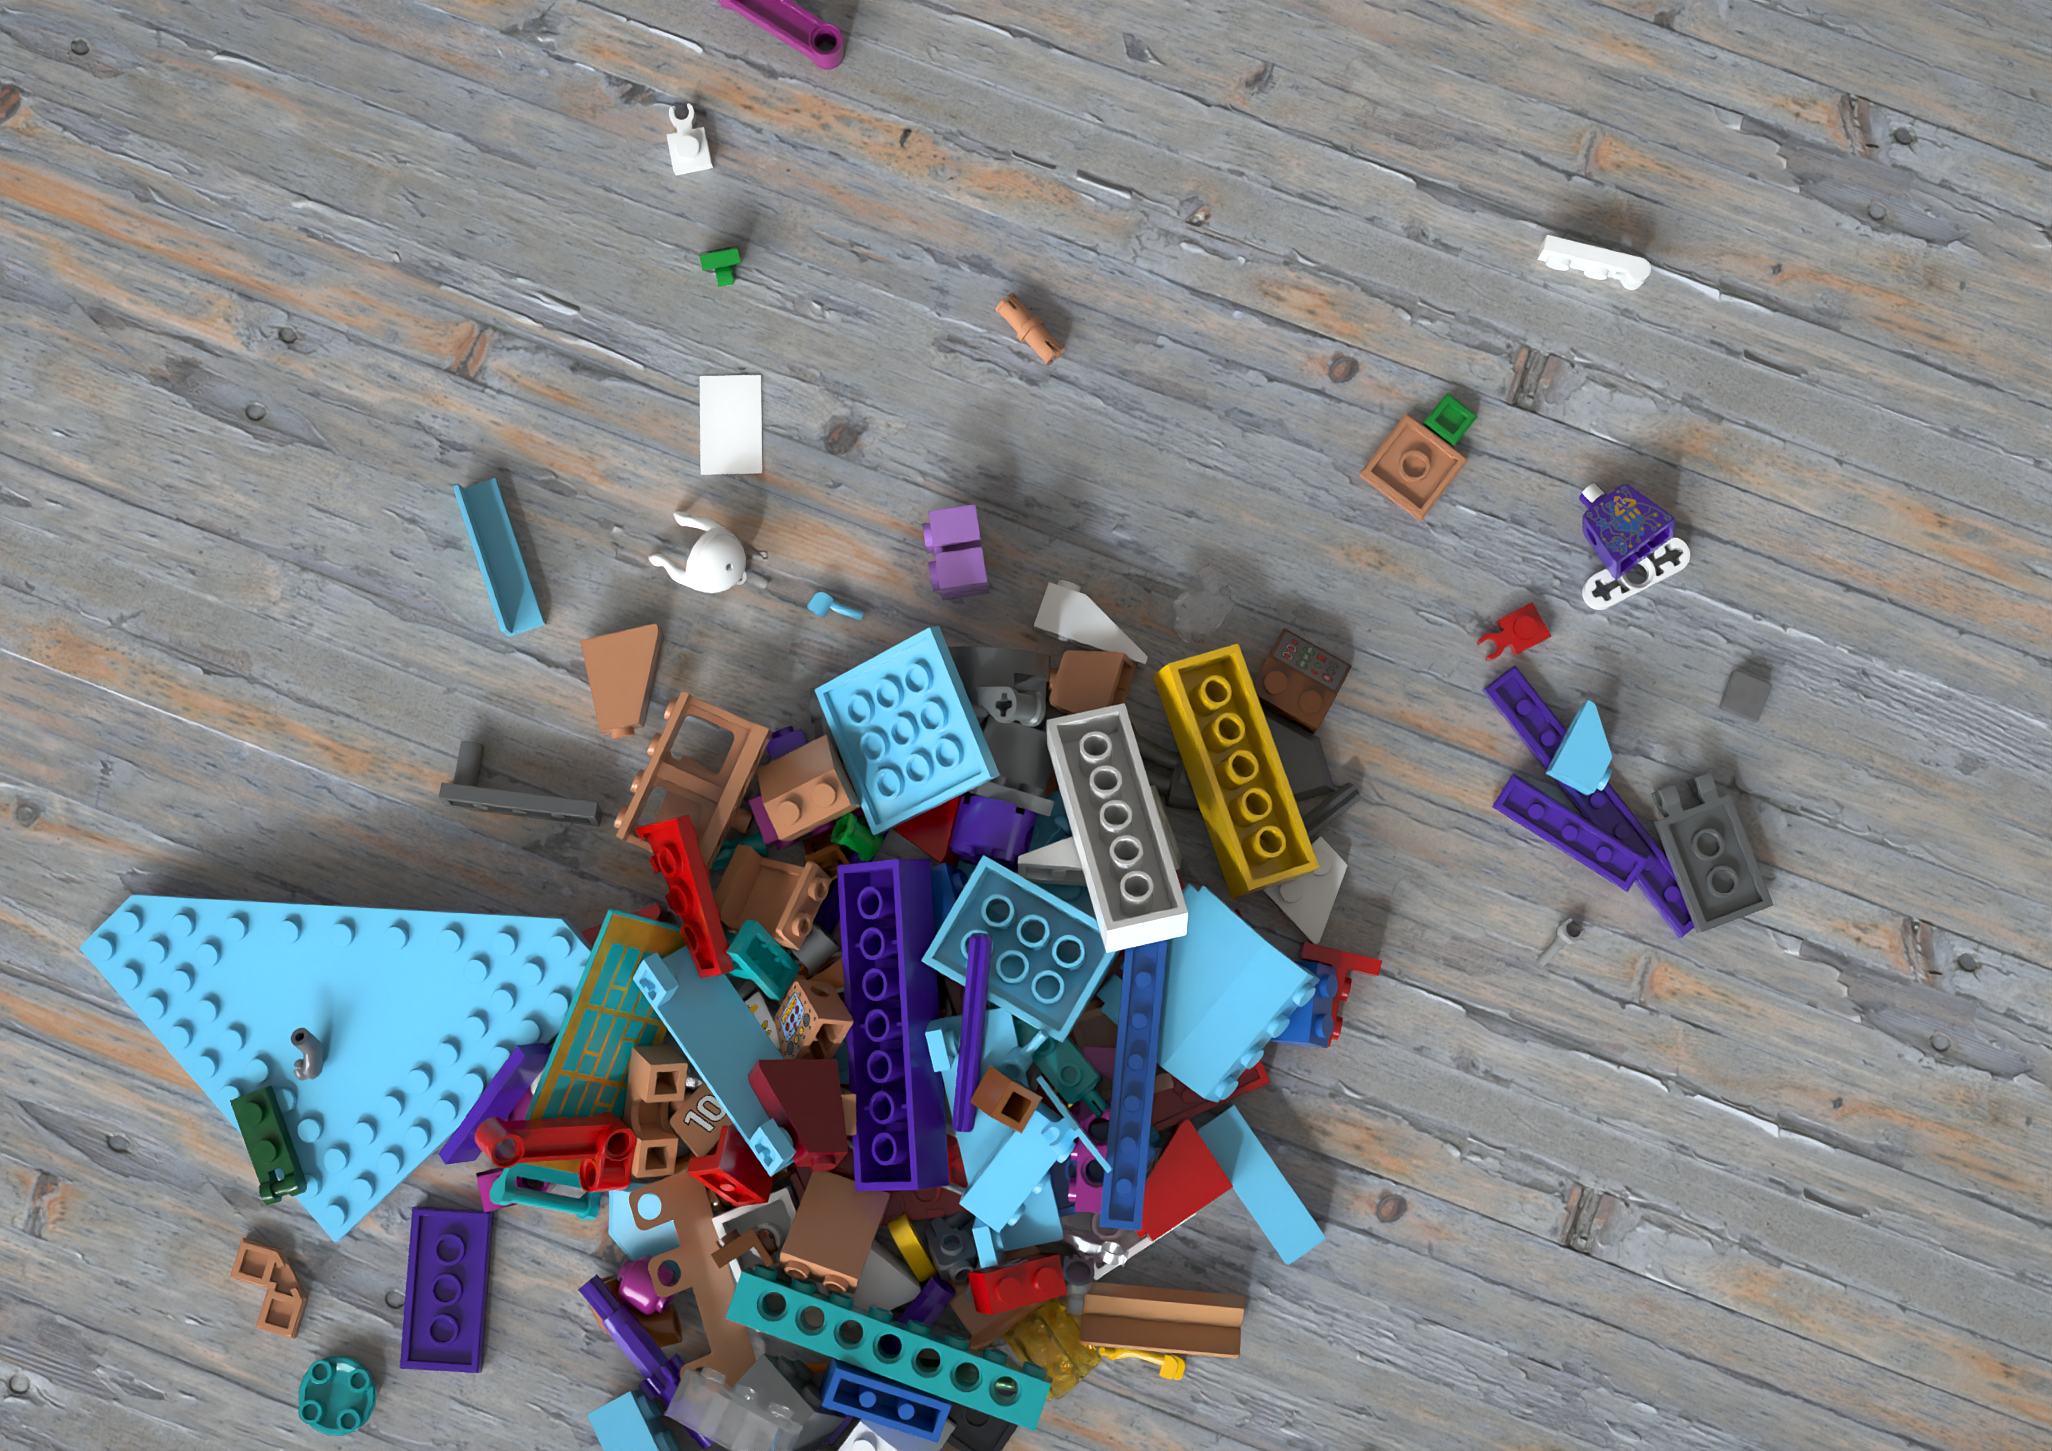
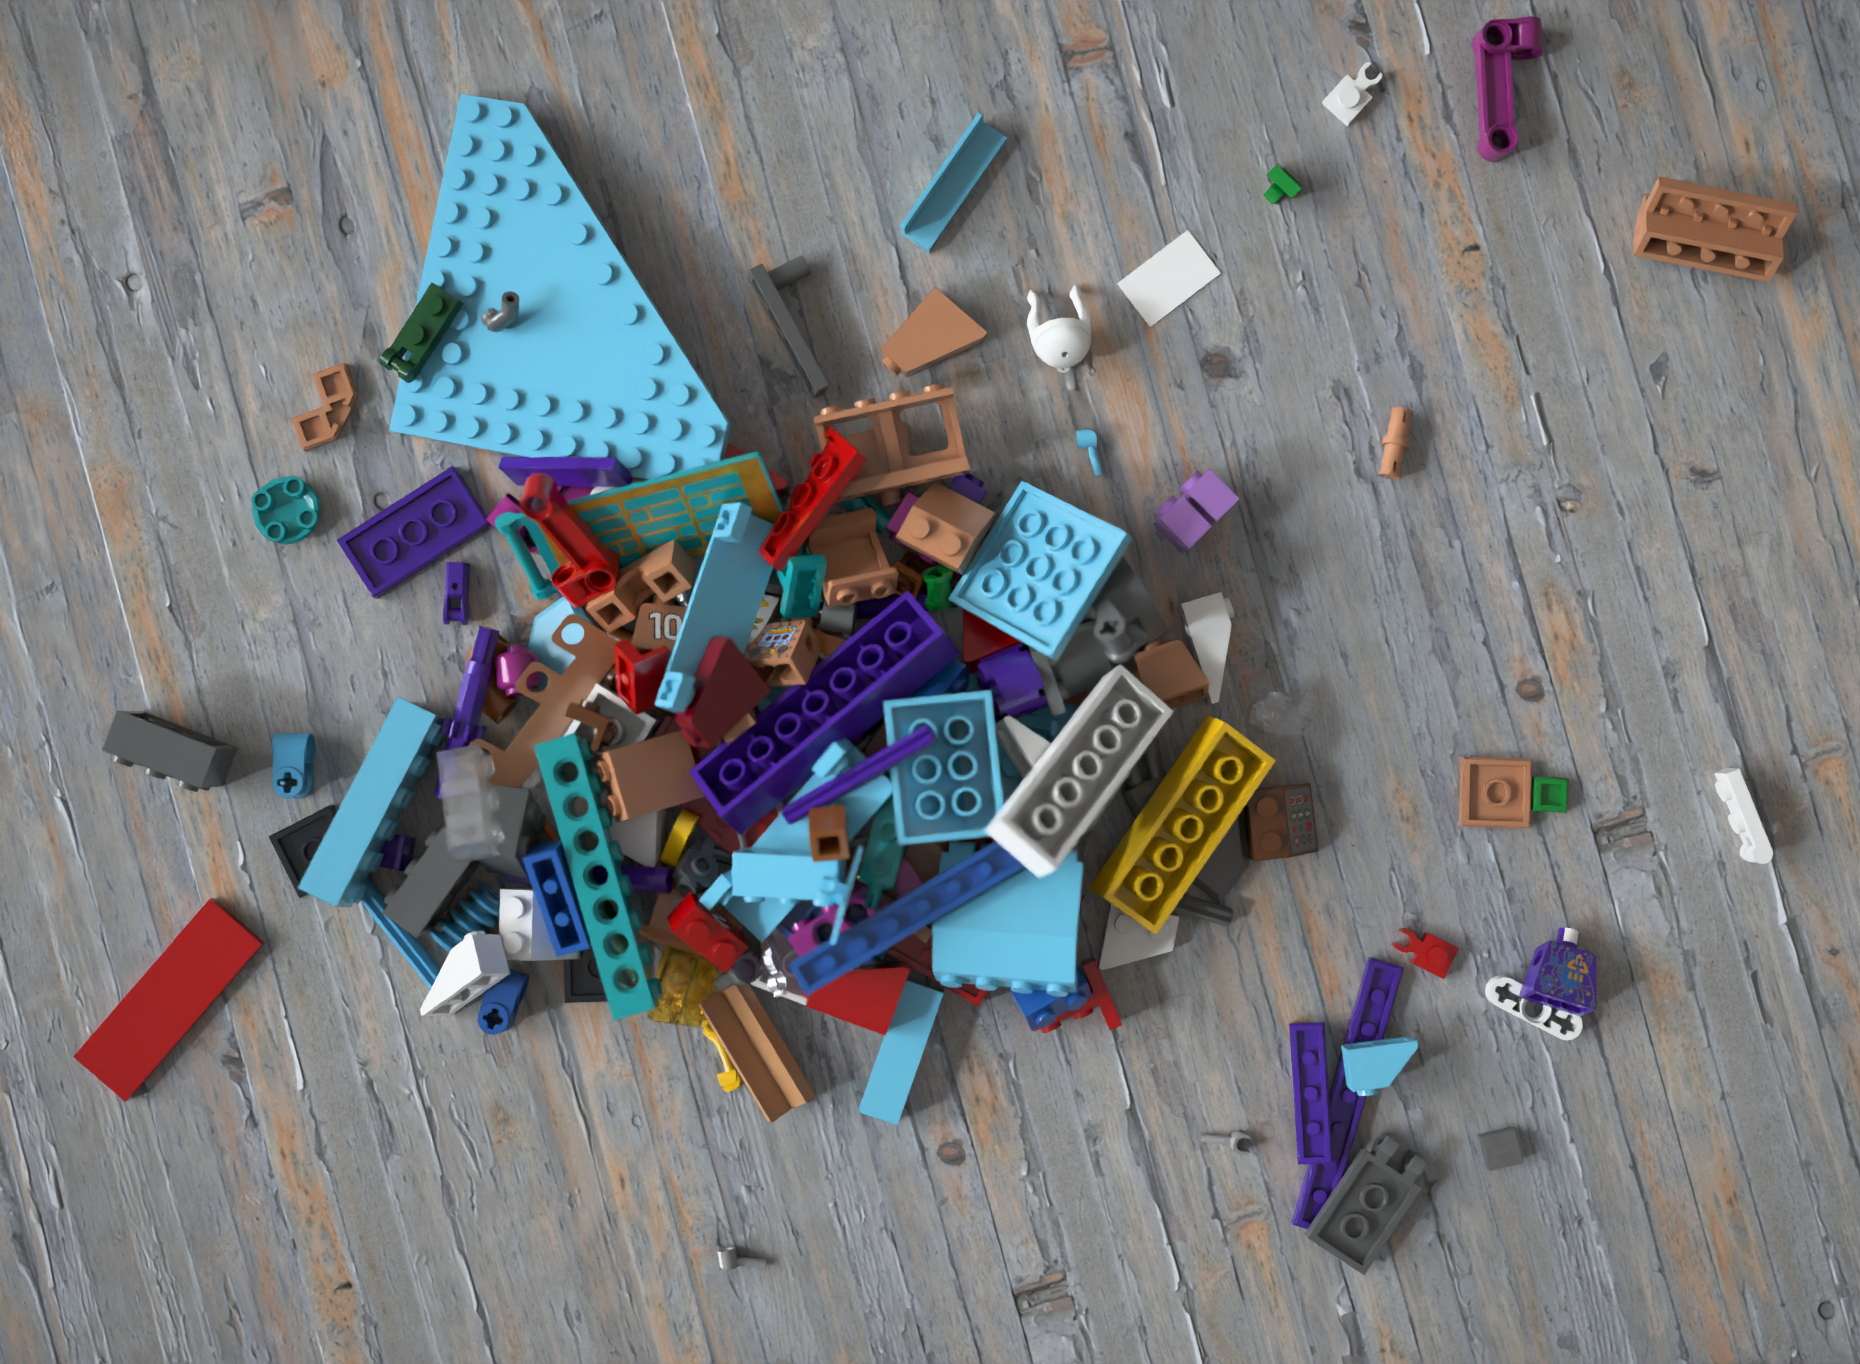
camera: 50 degrees right, 5 degrees up
(527, 1286) = (456, 587): none -> dark purple bar
(1022, 1057) = (867, 823): medium azure hand -> none

